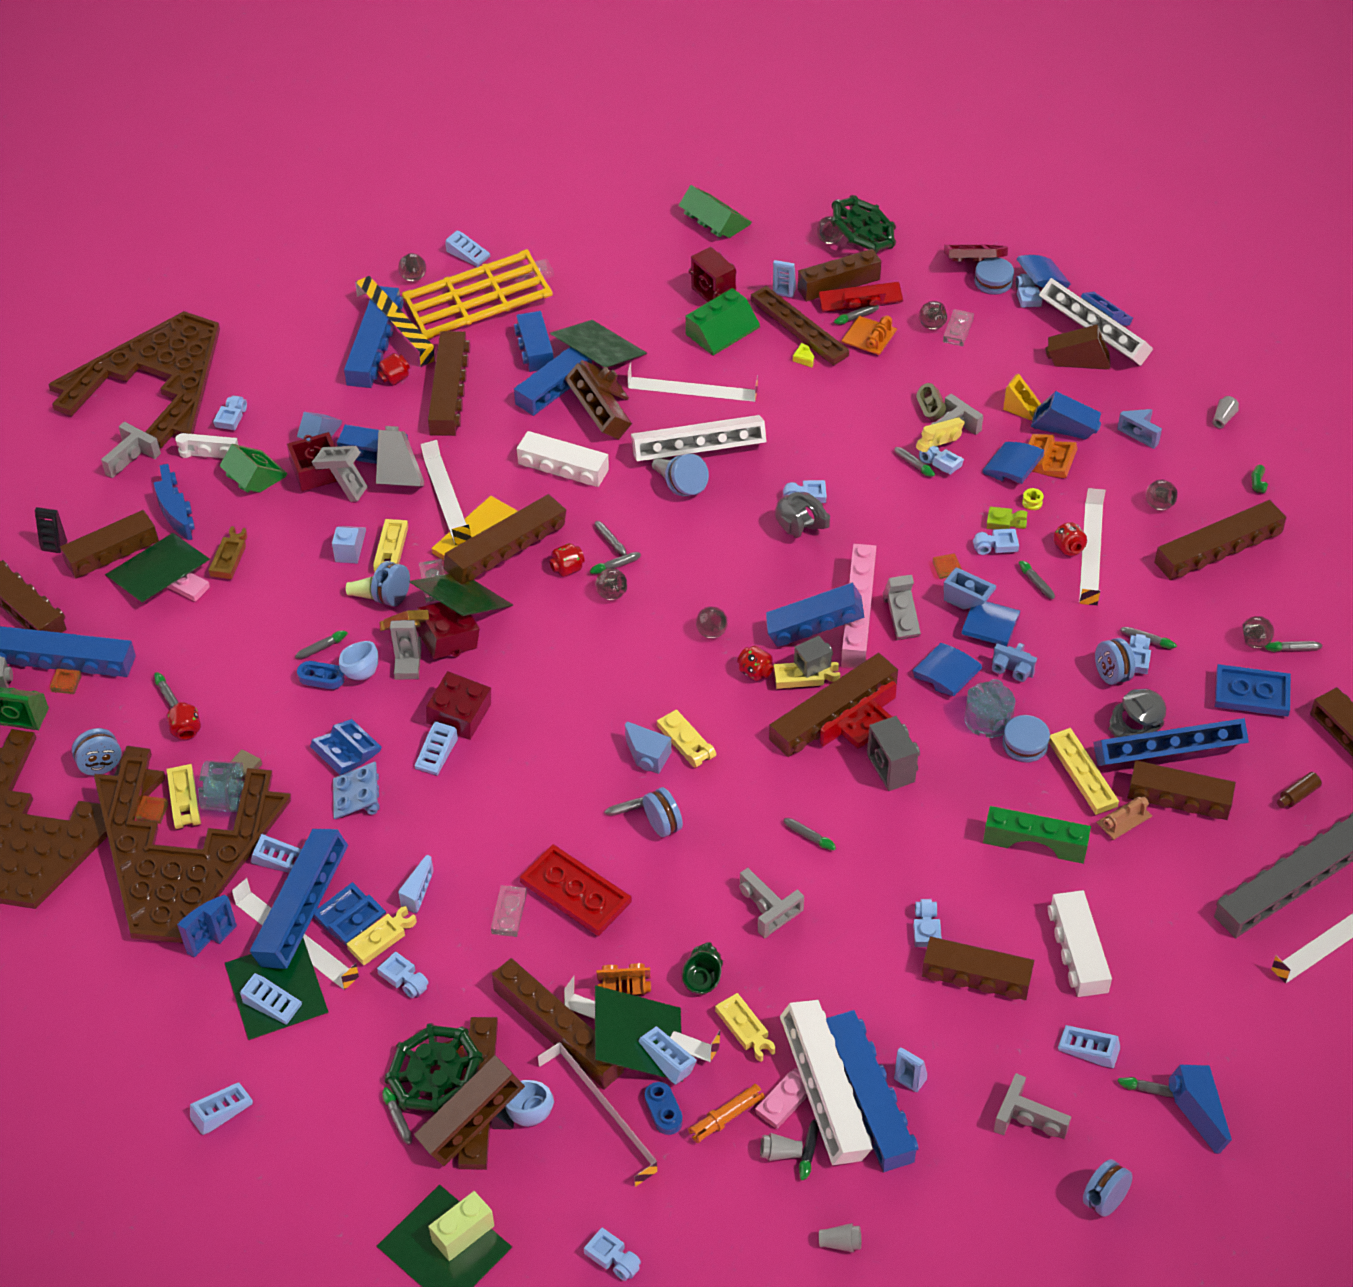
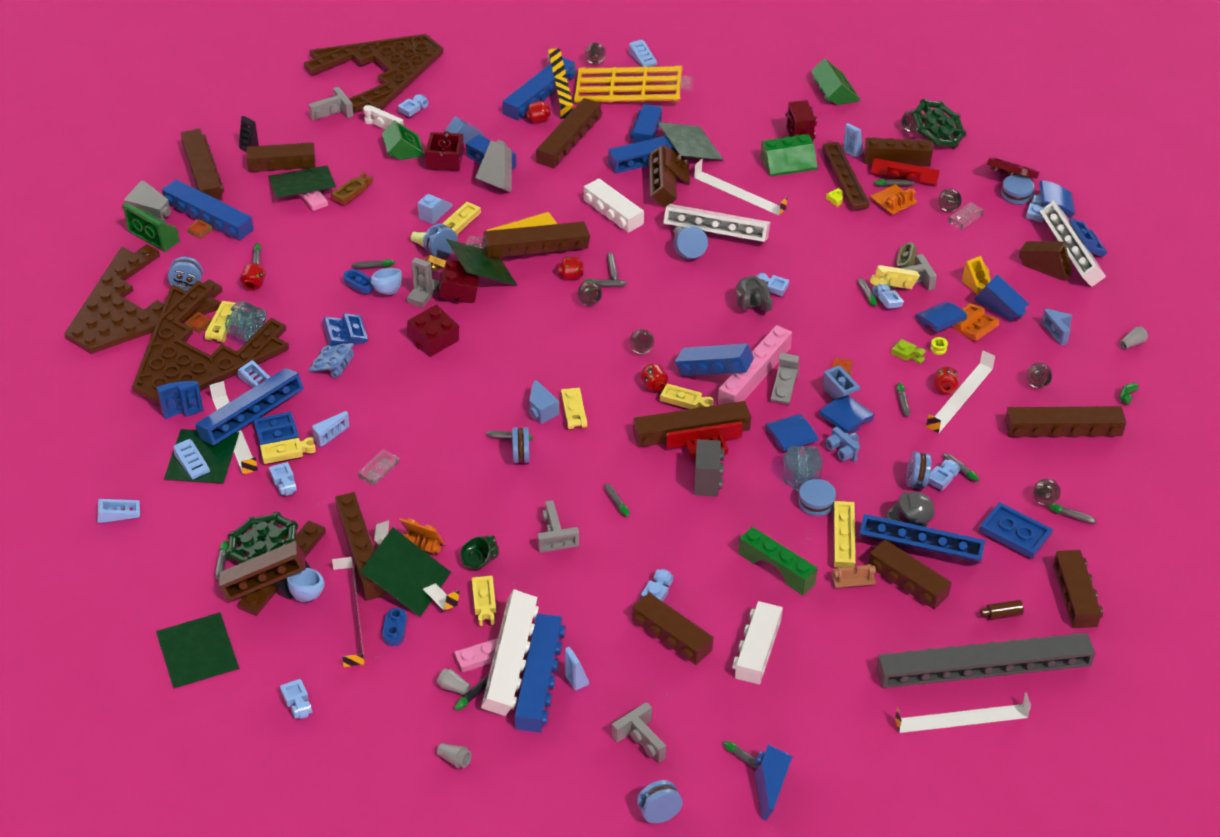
camera: 25 degrees right, 5 degrees down
(173, 503) = (337, 145): blue slope -> none
(248, 761) = (276, 314): dark tan tile -> none
(341, 464) = (456, 160): light grey bracket -> none
(440, 734) = (408, 344): light blue slope -> none
(445, 493) = (521, 196): white sticker -> none
(461, 1226) = (212, 639): yellowish green brick -> none
(575, 889) = (431, 471): red plate -> none
(674, 1062) = (417, 606): light blue slope -> none
(717, 1119) = (433, 646): orange pin -> none
(813, 656) = (695, 386): dark grey brick -> none
(1002, 540) = (893, 364): light blue plate -> none
(1097, 1056) = (727, 722): light blue slope -> none

